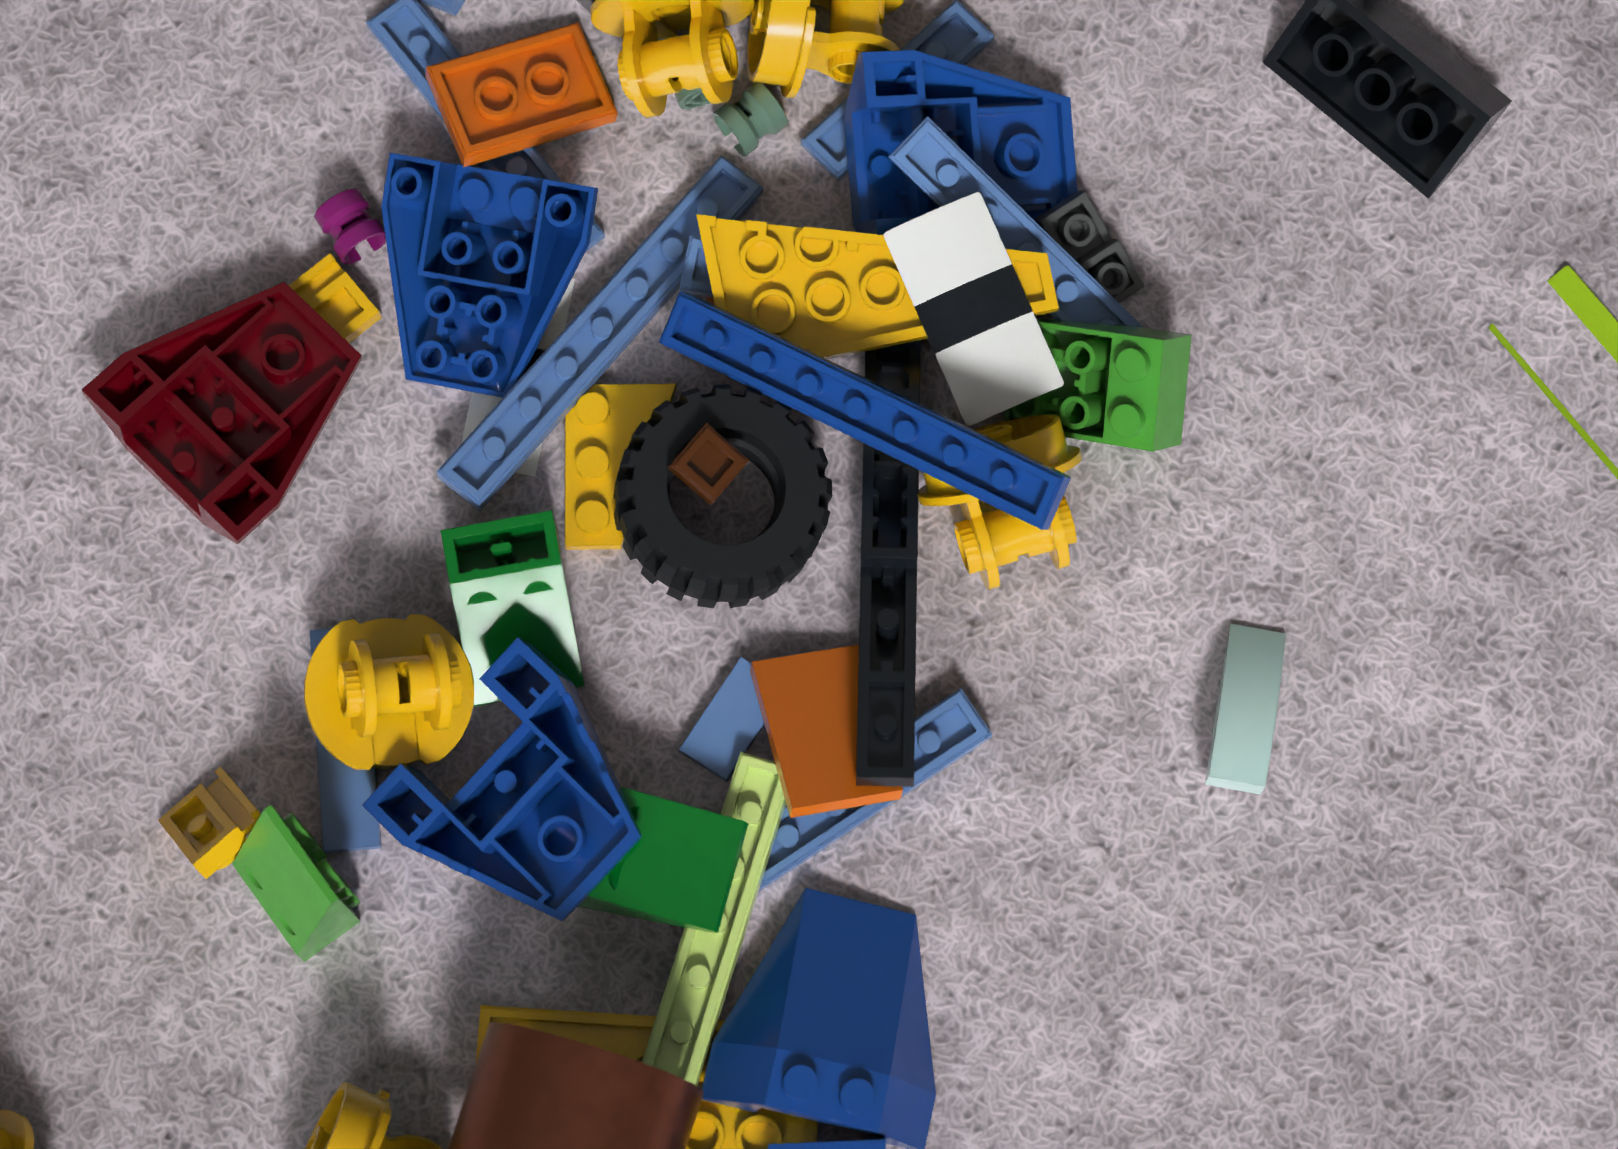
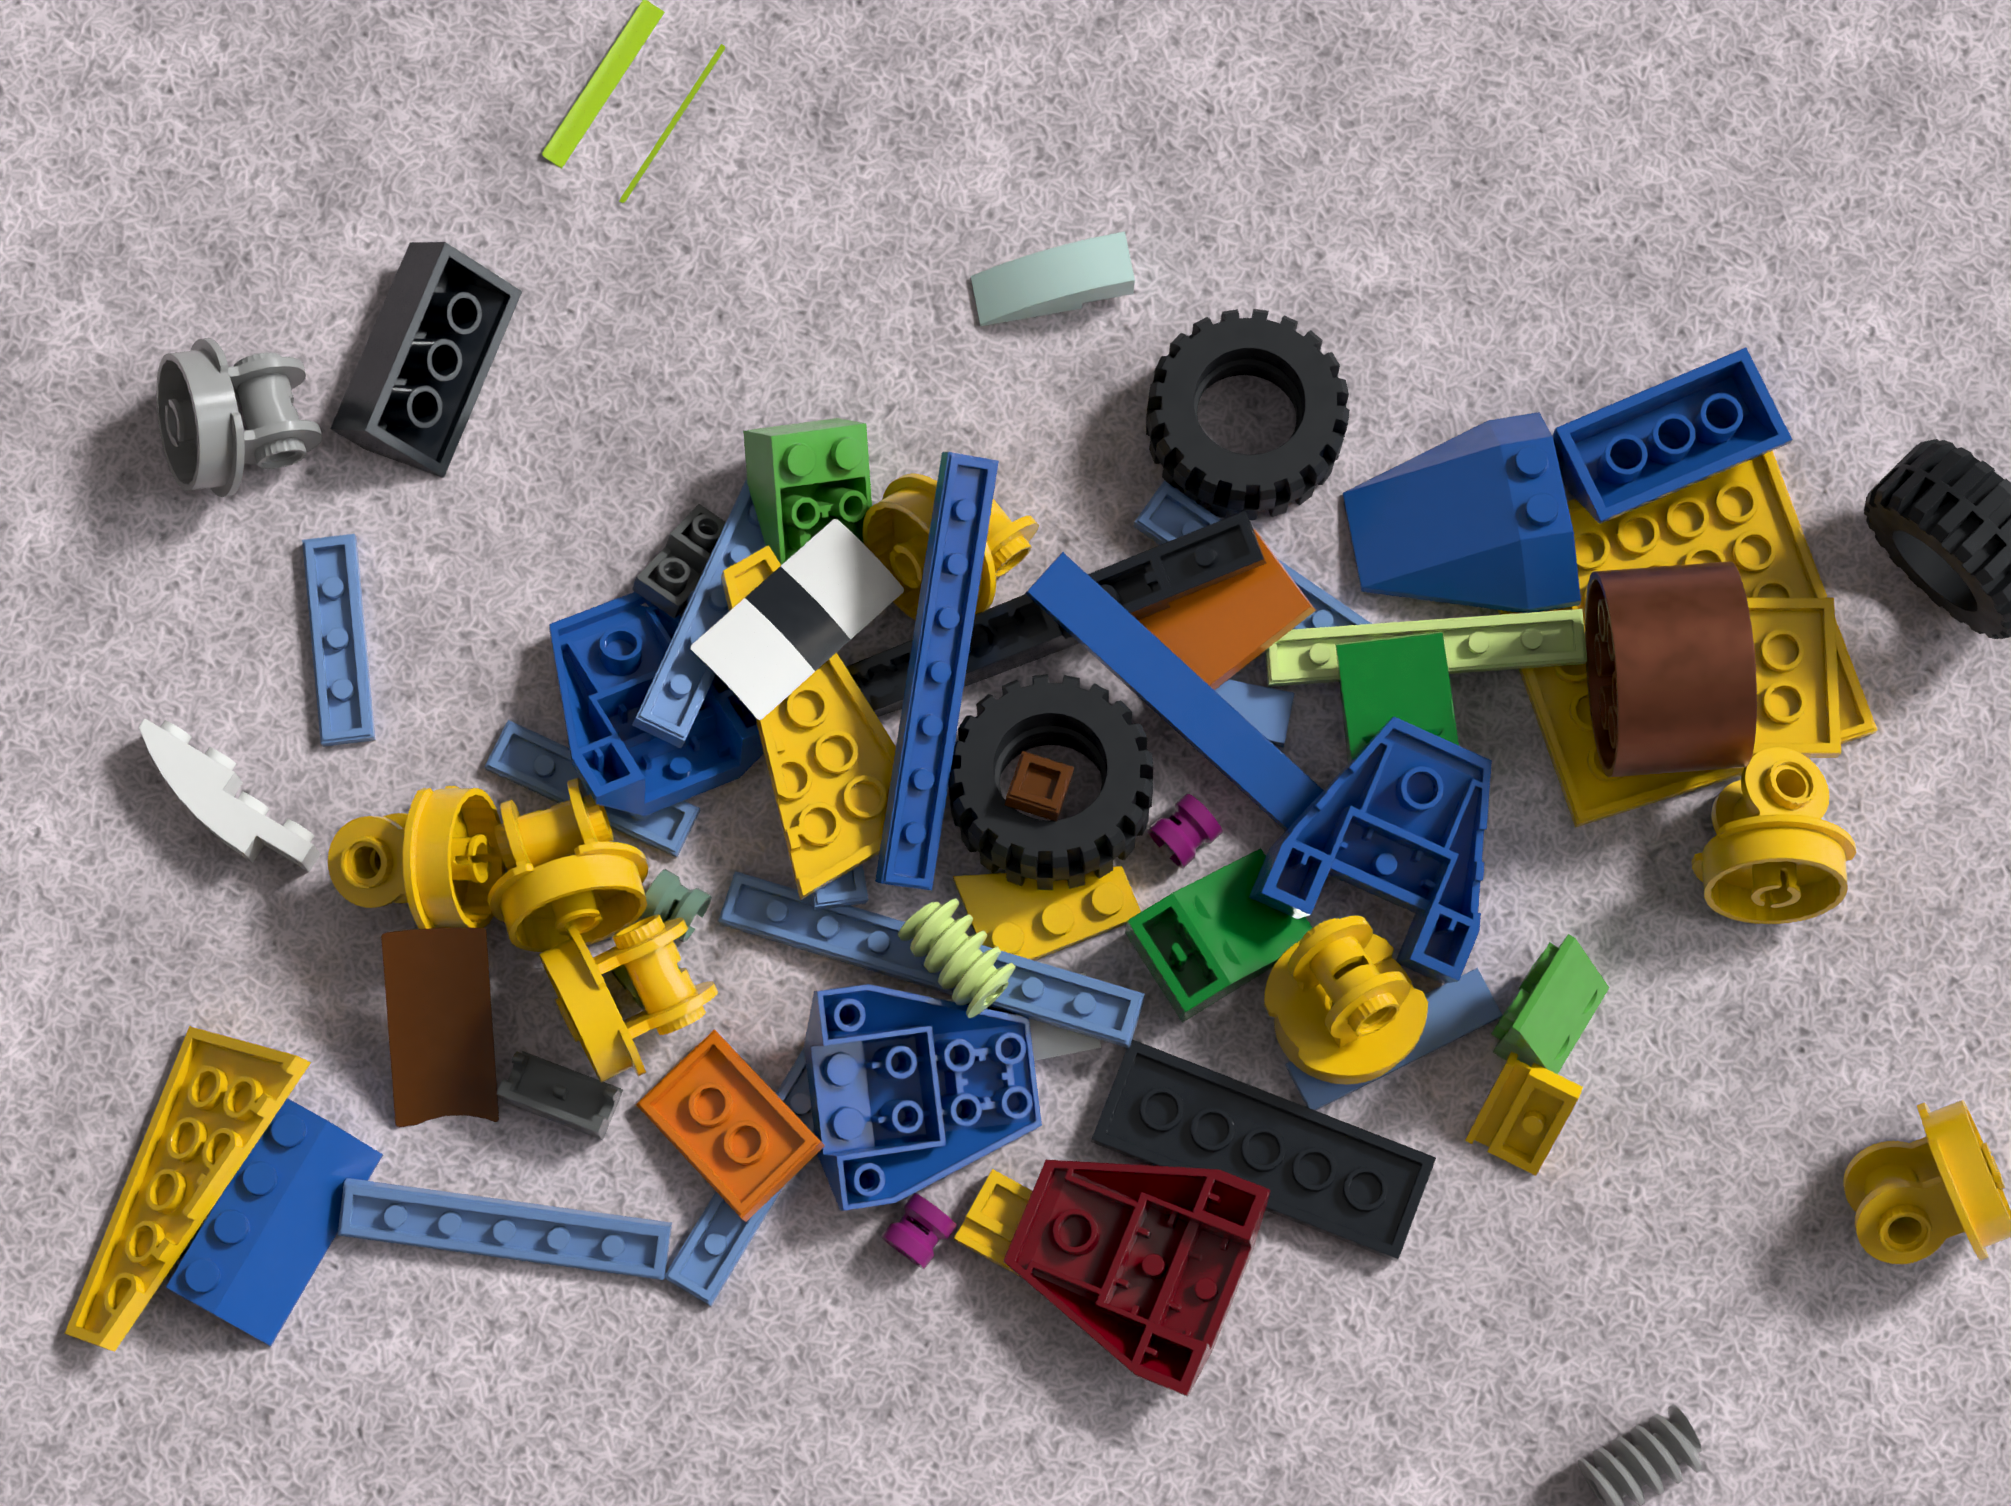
camera: 115 degrees left, 0 degrees up
(291, 571) = (1313, 1164): none -> black plate
(583, 341) = (956, 955): none -> yellowish green piece
(629, 616) = (1185, 830): none -> magenta wheel
(763, 648) = (1174, 691): none -> blue tile
(1041, 762) = (1258, 350): none -> black tyre

